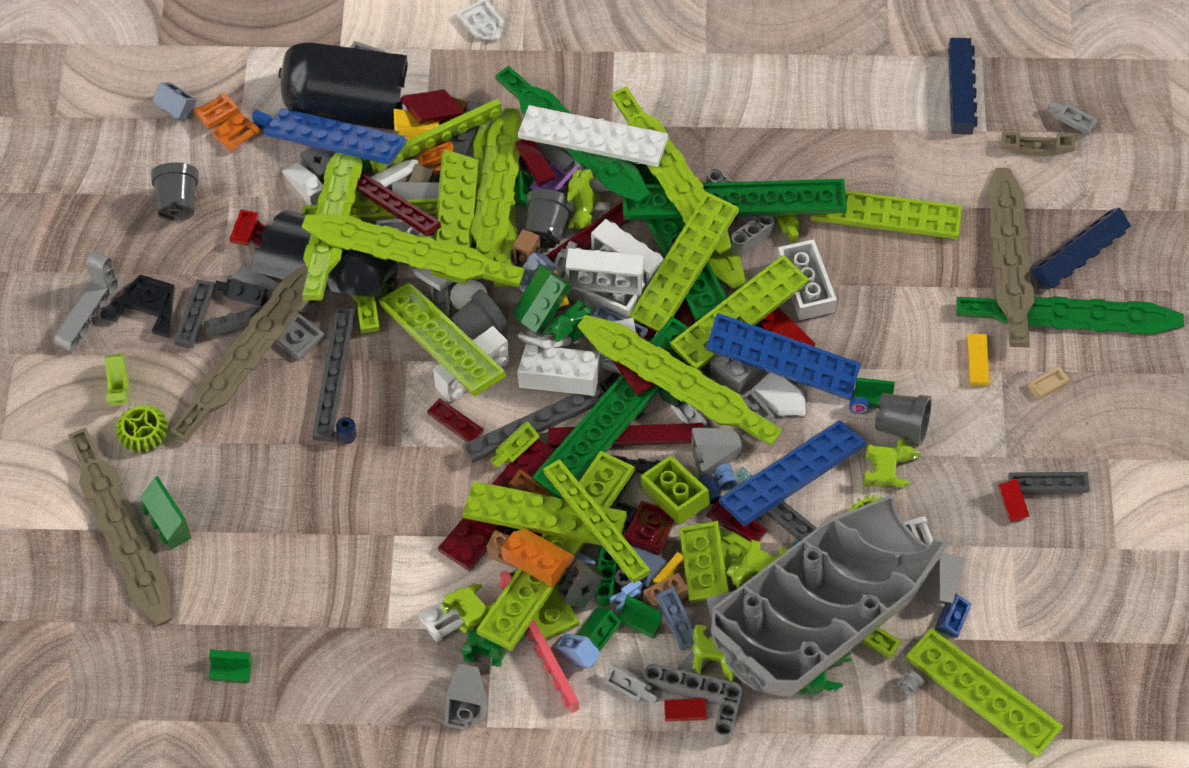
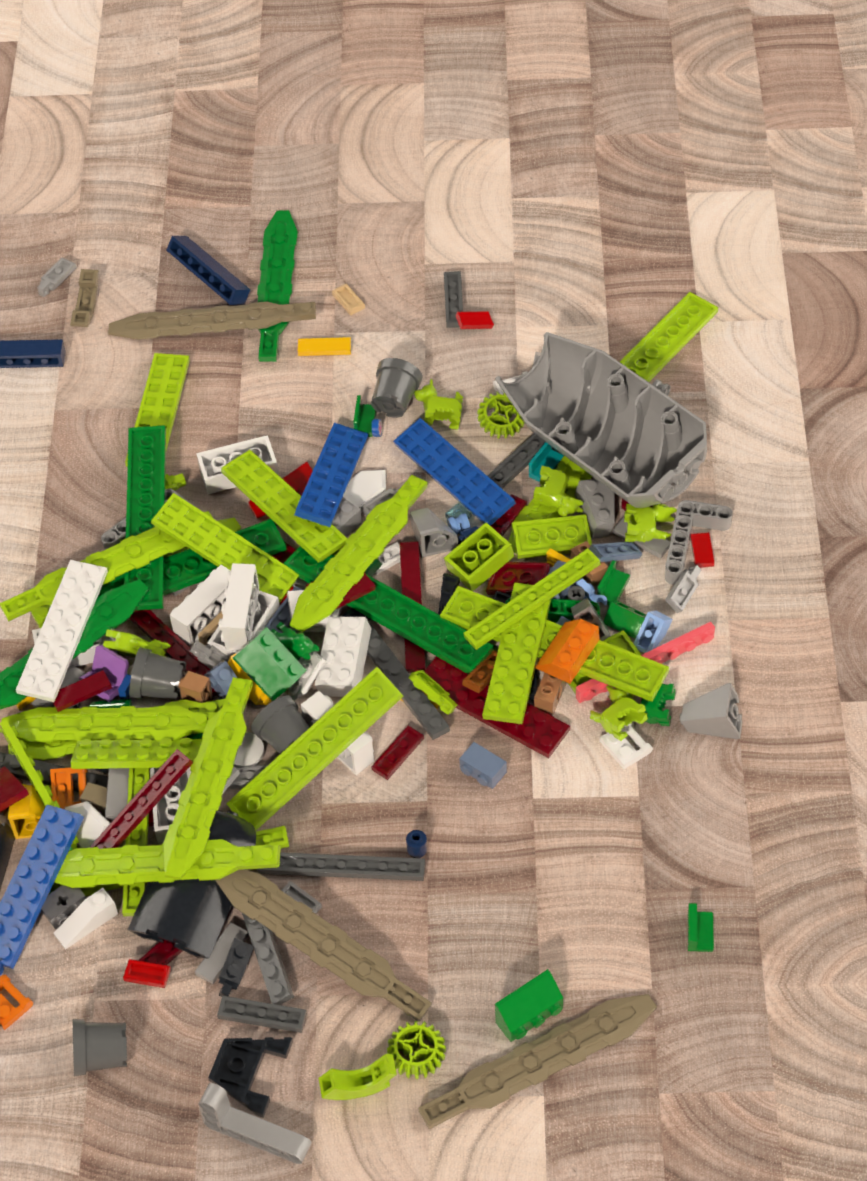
camera: 90 degrees left, 5 degrees down
(426, 487) = (483, 765): none -> sand blue brick

